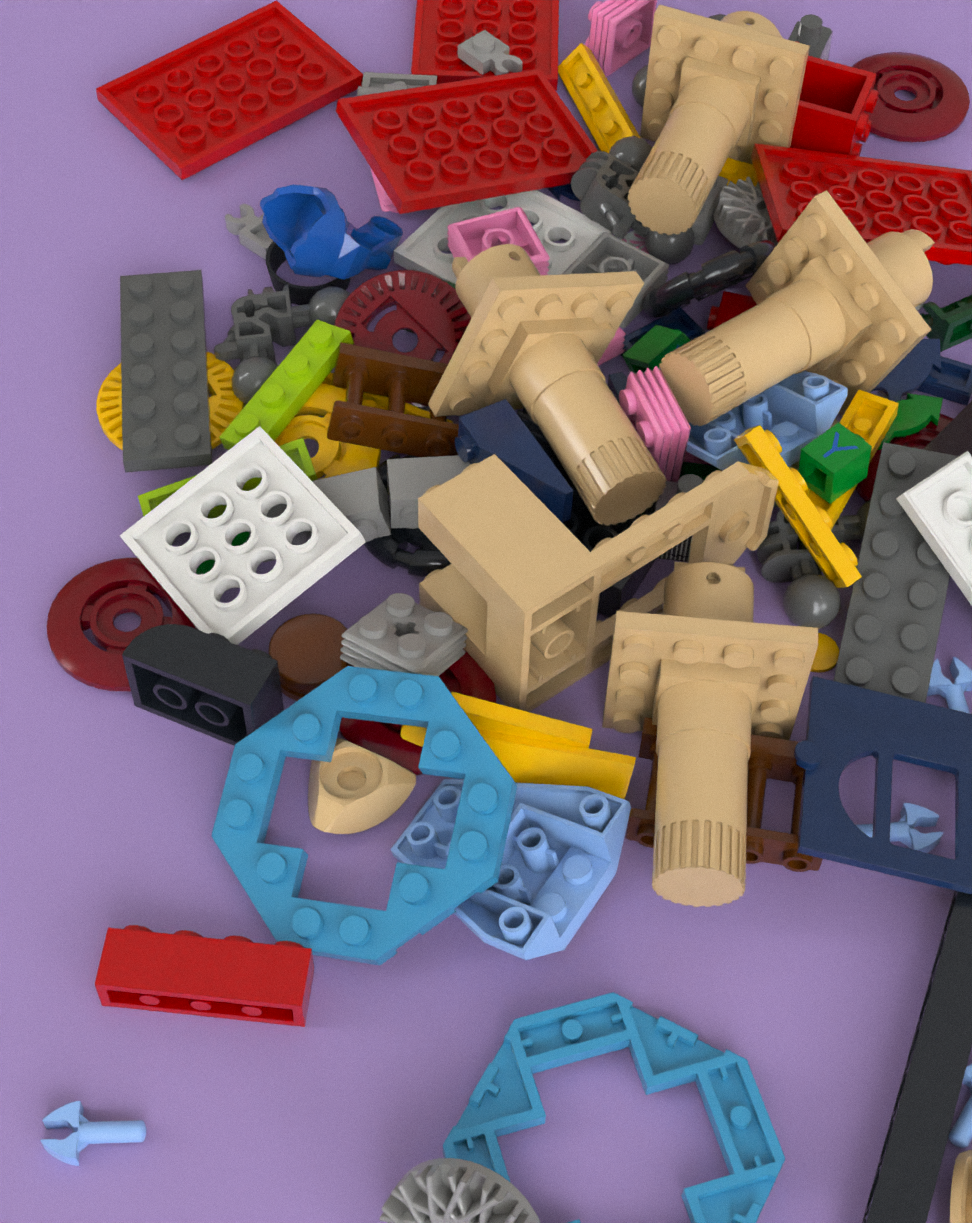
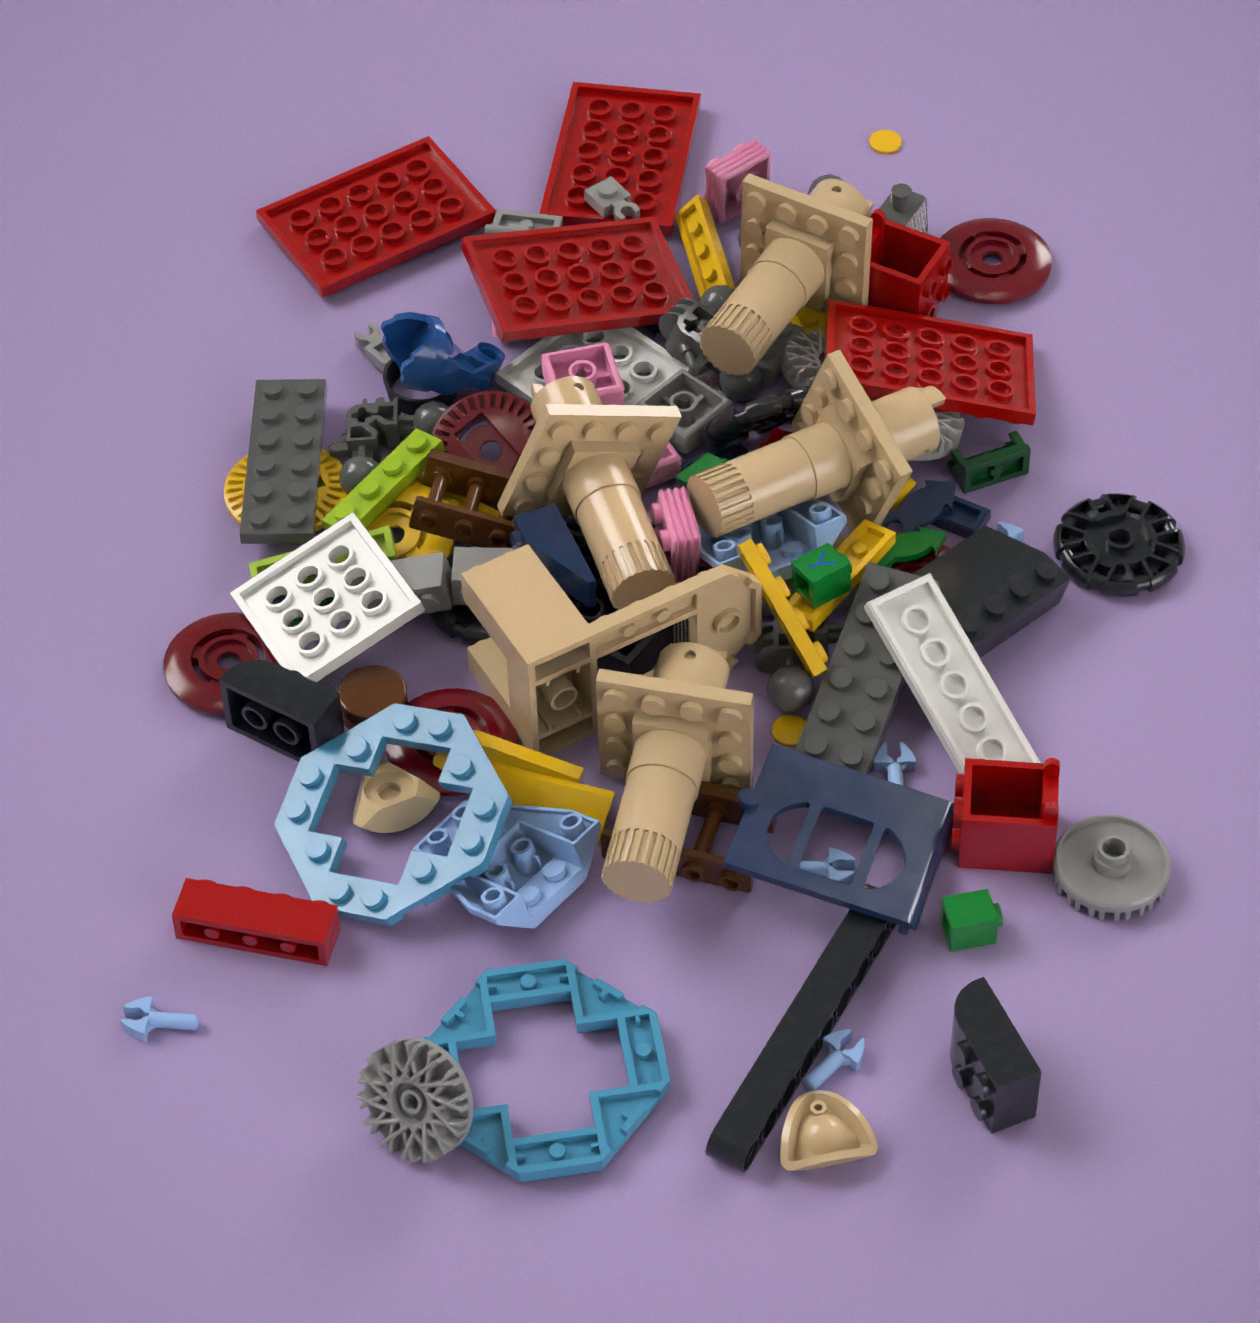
camera: 10 degrees right, 5 degrees down
(404, 638) = (447, 687): light grey brick -> none

